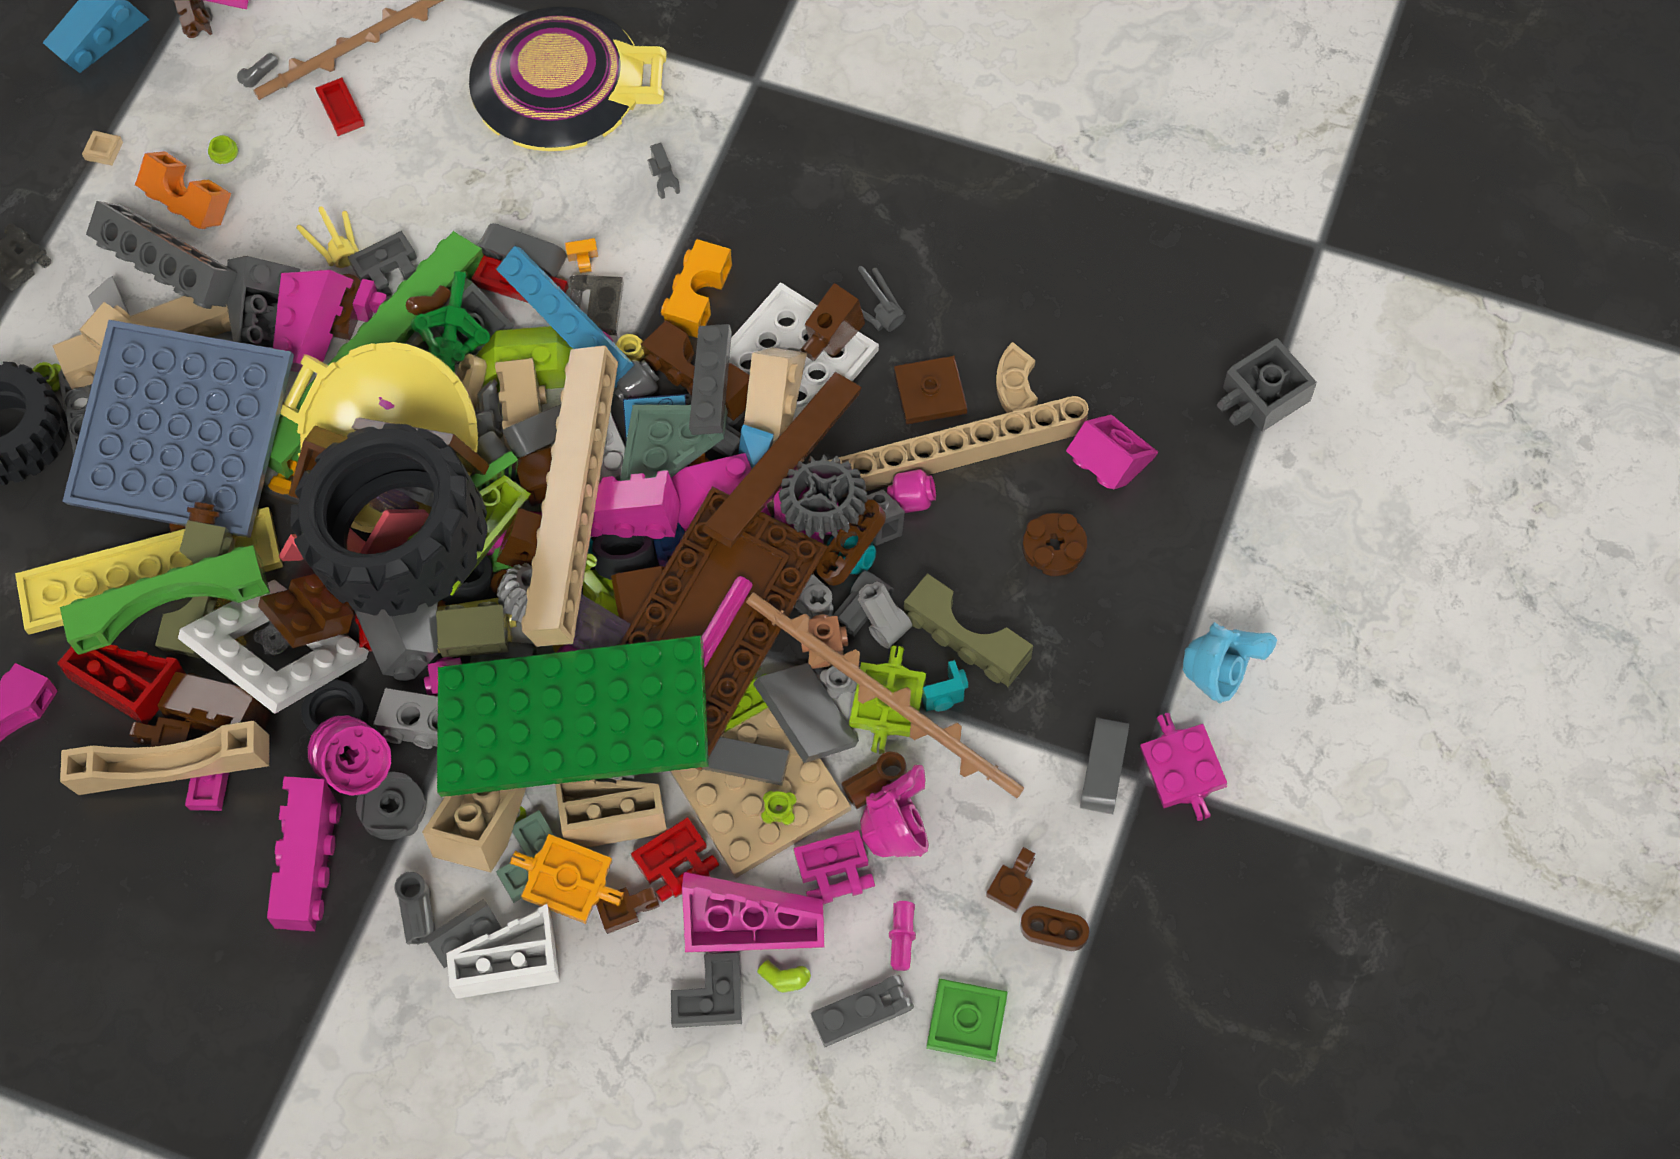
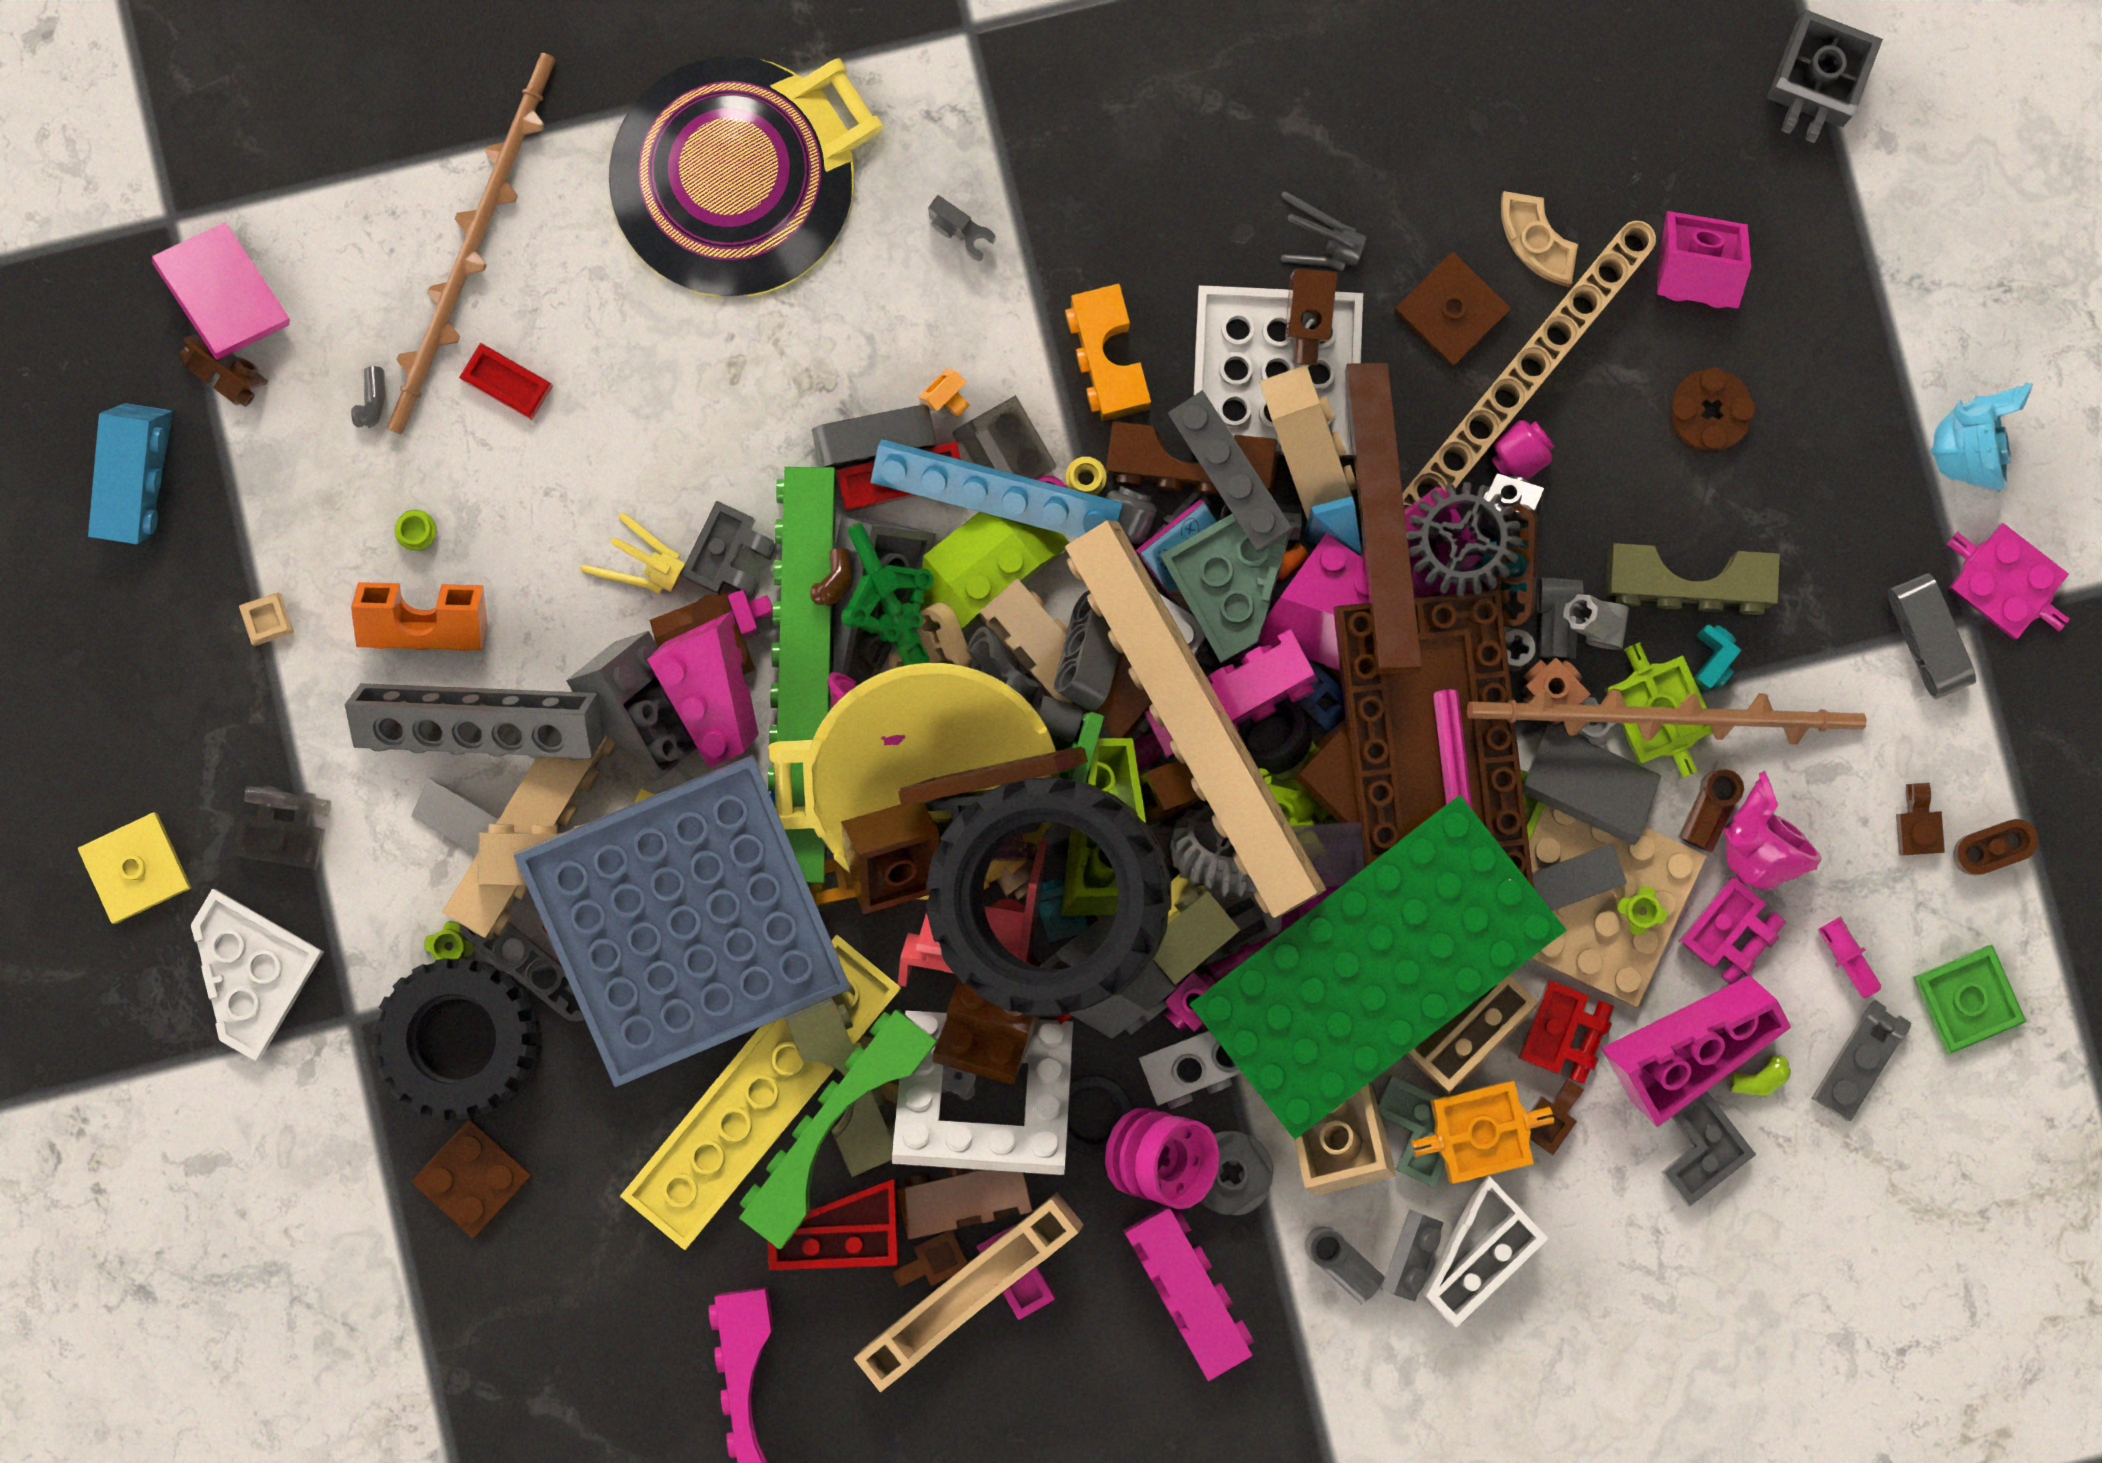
camera: 40 degrees left, 20 degrees up
(203, 513) = (793, 1002): reddish brown plate -> none

